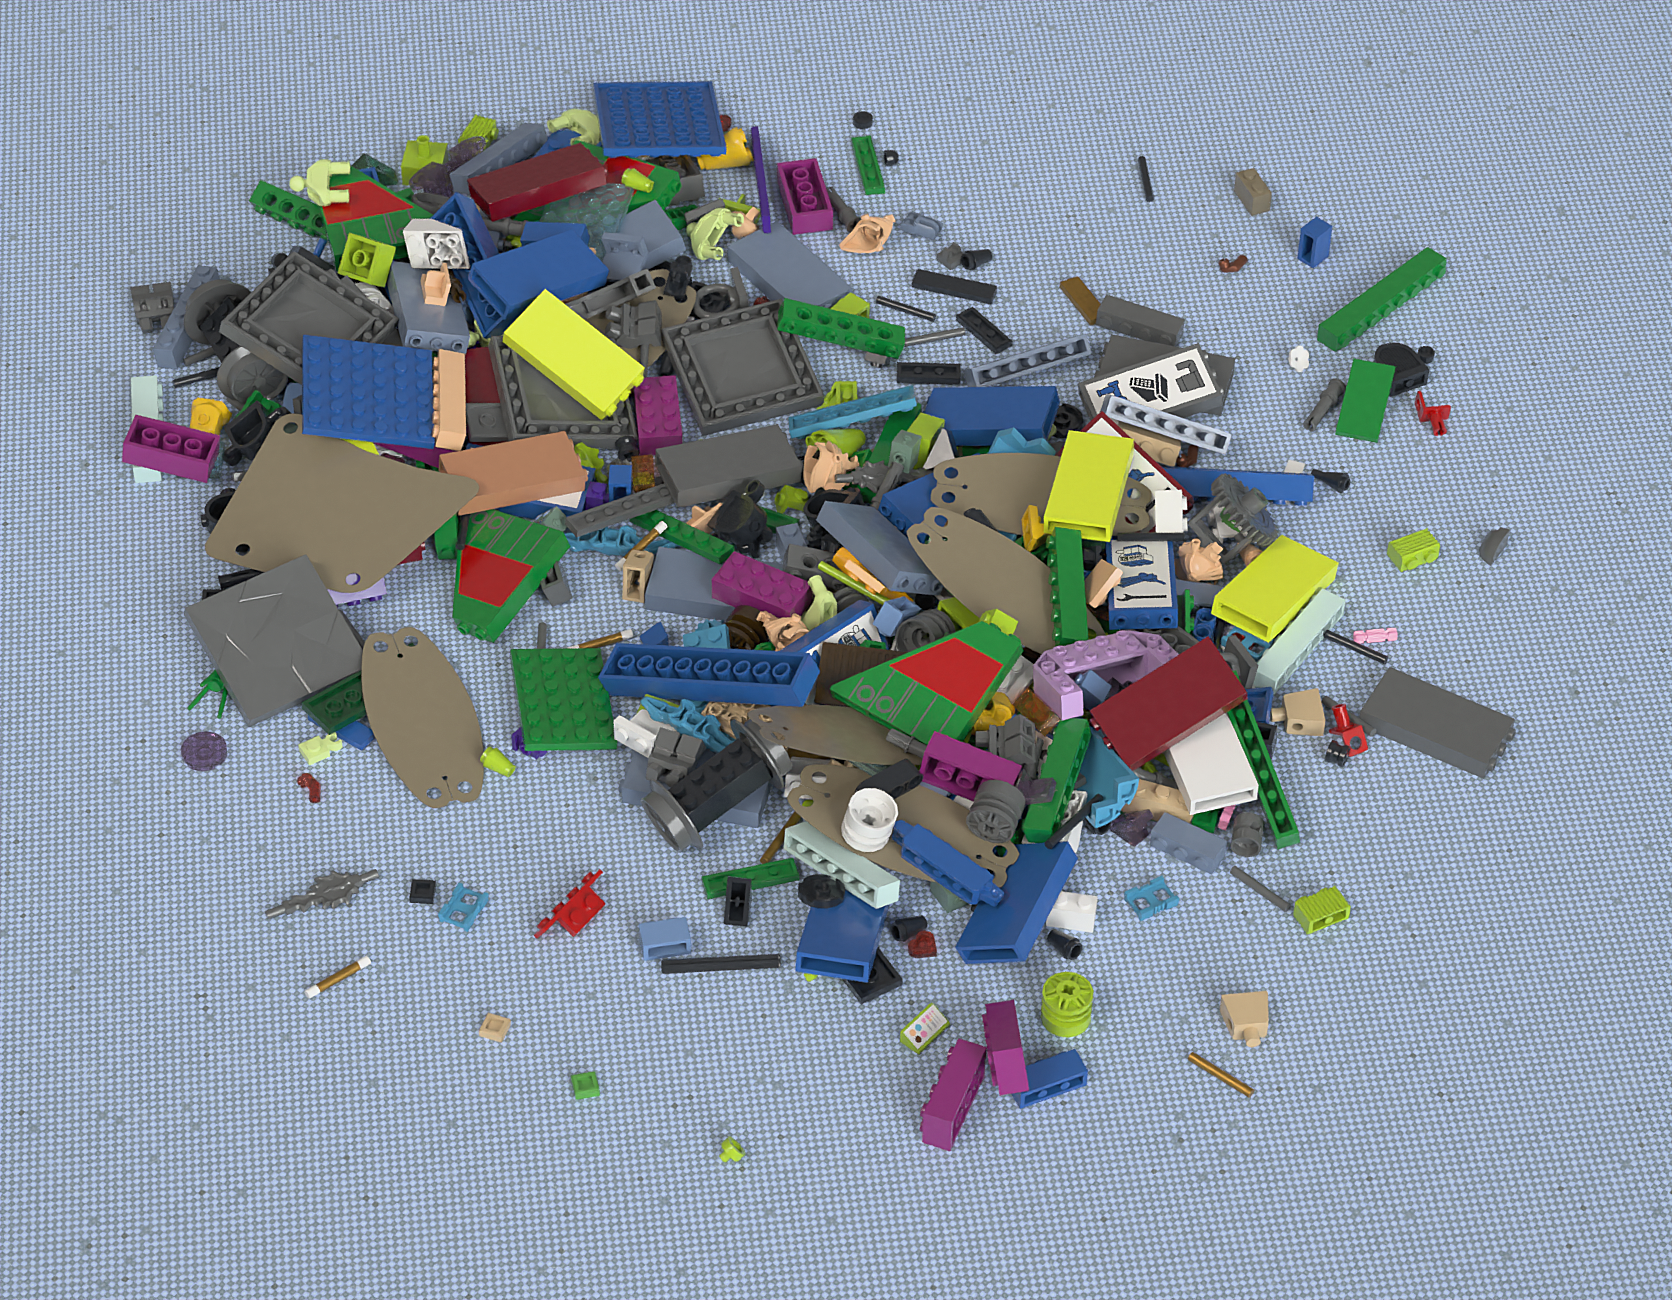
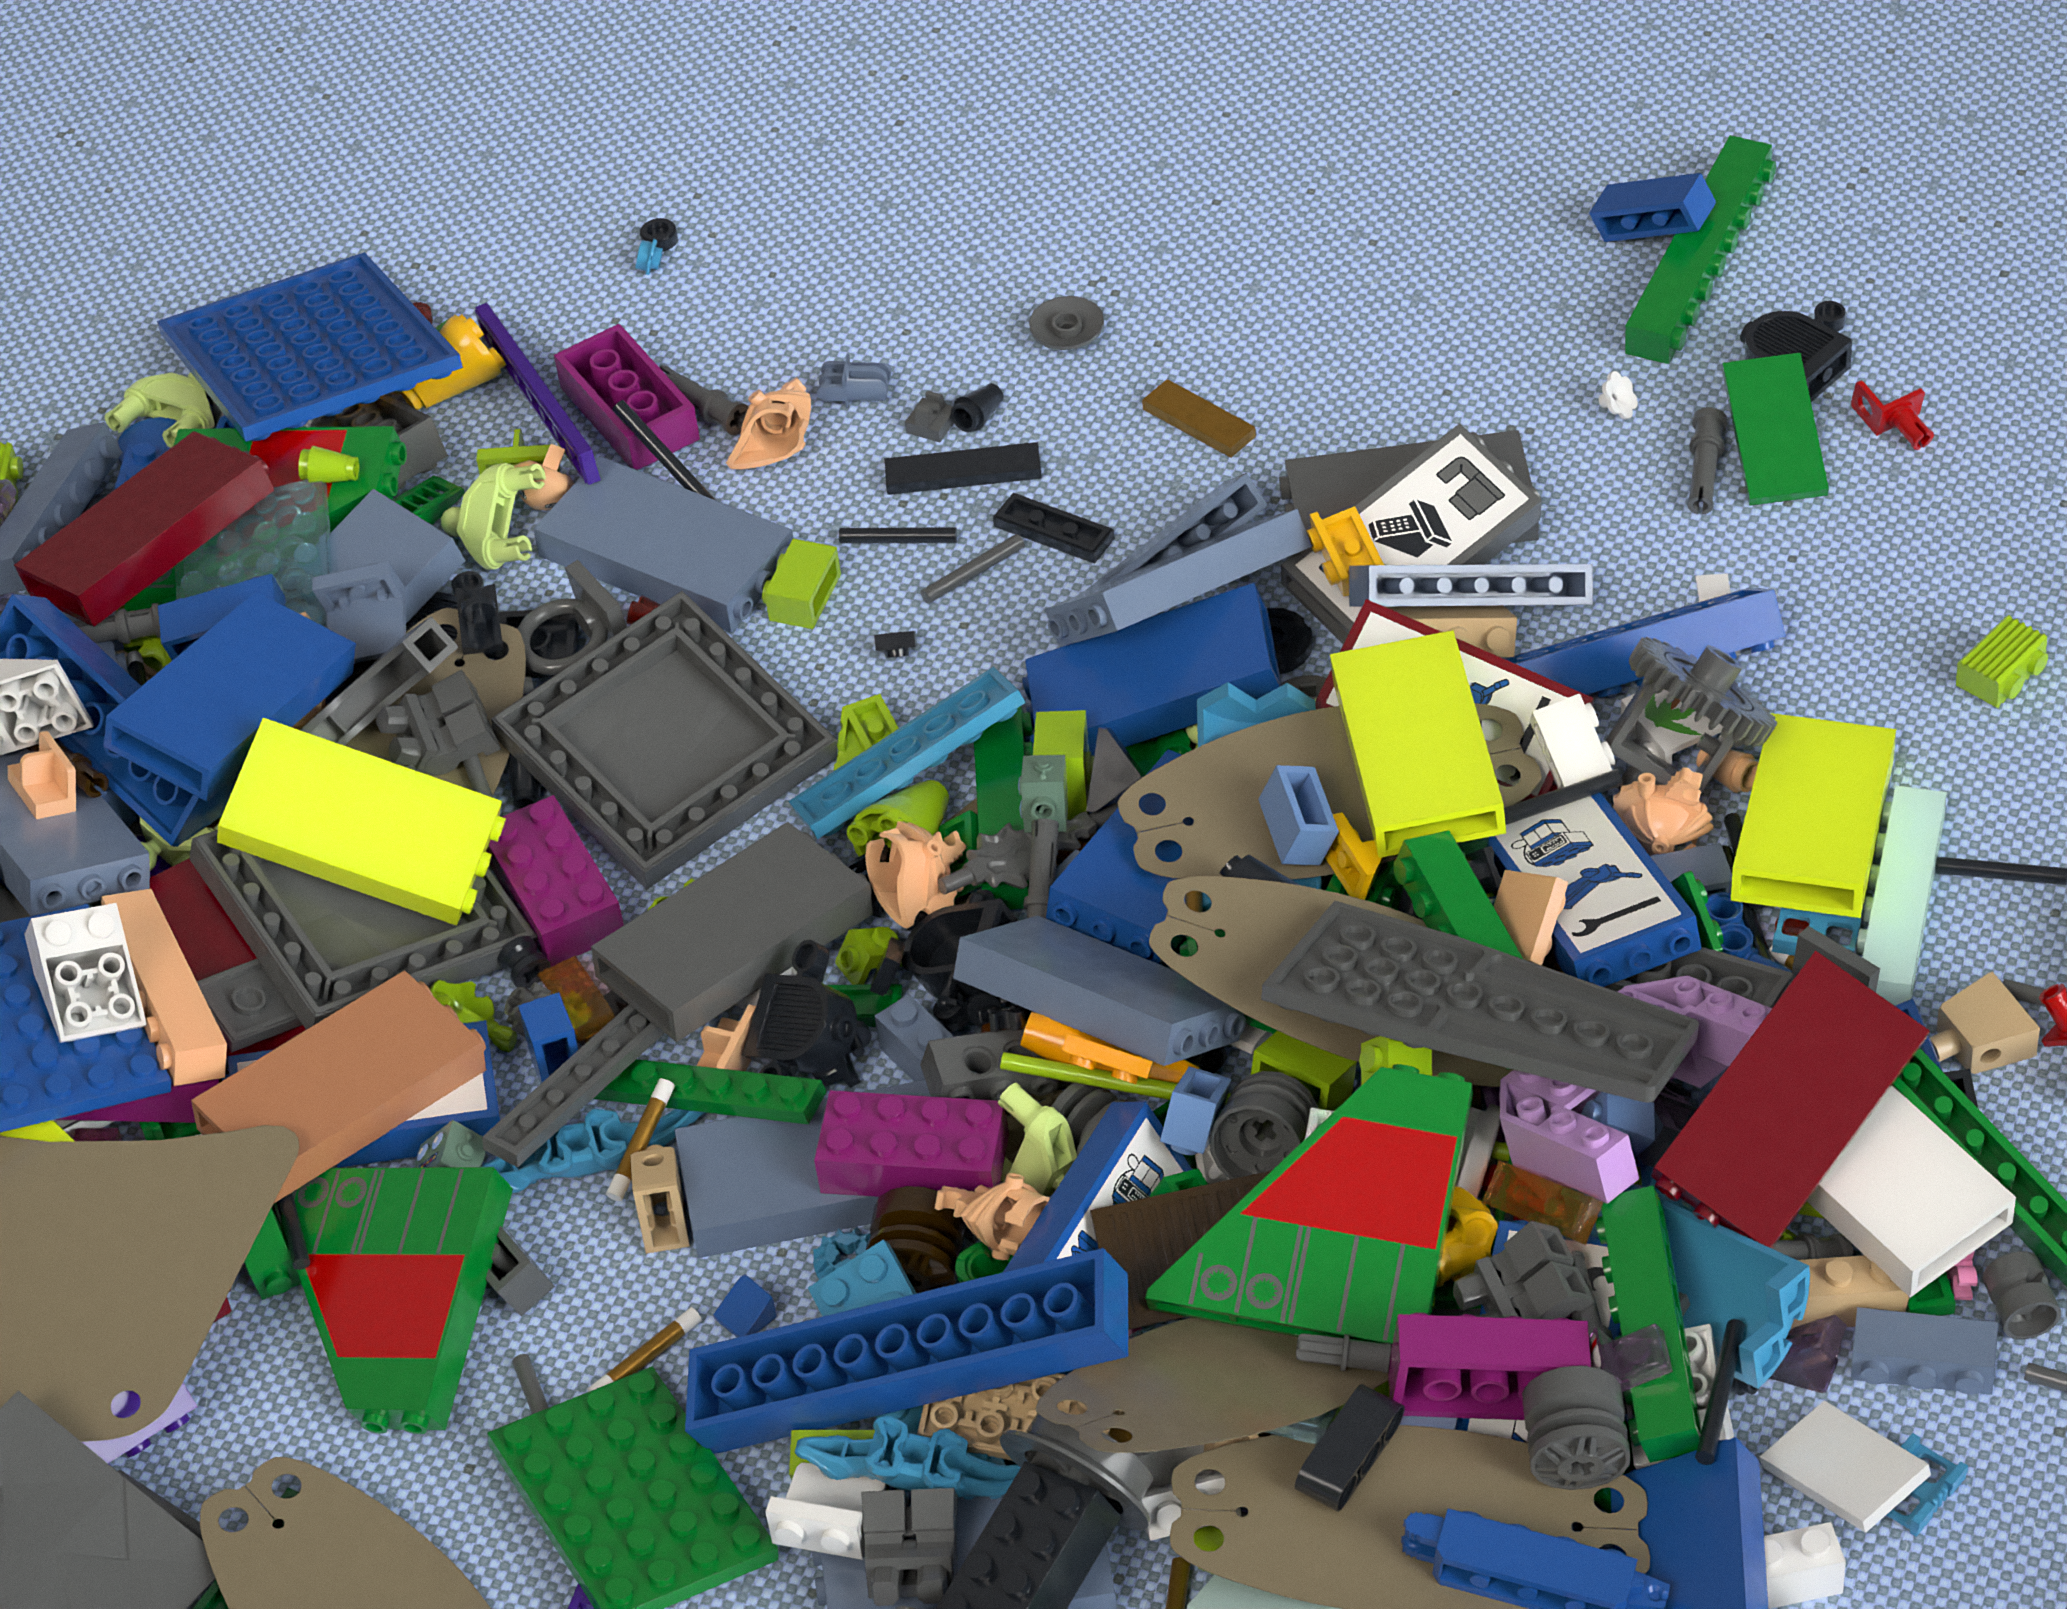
camera: 15 degrees left, 0 degrees up
(414, 379) = (85, 972): none -> white slope
(596, 495) = (513, 1075): dark purple brick -> none
(698, 213) = (462, 481): dark grey tile -> none
(794, 507) = (887, 966): none -> black tile
(806, 227) = (659, 449): none -> black bar
(841, 328) = (811, 608): green brick -> none
(851, 129) = (648, 256): none -> dark azure plate
(868, 165) = (706, 309): green tile -> none
(869, 820) = (1356, 1536): white wheel -> none
(890, 157) = (739, 282): black hinge -> none
(928, 373) = (994, 637): black plate -> none
(1015, 500) = (1298, 815): none -> medium blue brick
(1022, 372) = (1177, 578): none -> sand blue brick
(1041, 231) = (1066, 322): none -> dark grey dish
(1045, 610) = (1478, 1004): none -> dark grey wing
(1111, 381) = (1343, 544): none -> yellow bracket
(1121, 878) = (1845, 1466): none -> white tile
(1139, 321) = (1317, 422): dark grey brick -> none
(1145, 179) = (1192, 178): black bar -> none
(1189, 459) = (1531, 630): copper arm -> none
(1227, 267) = (1423, 274): copper arm -> none
(1252, 191) = (1386, 140): dark tan brick -> none
(1314, 242) = (1540, 189): blue brick -> none
(1337, 480) = (1801, 584): black cone -> none
(1366, 270) = (1652, 207): none -> blue brick
(1375, 635) = (2023, 838): bright pink axle -> none

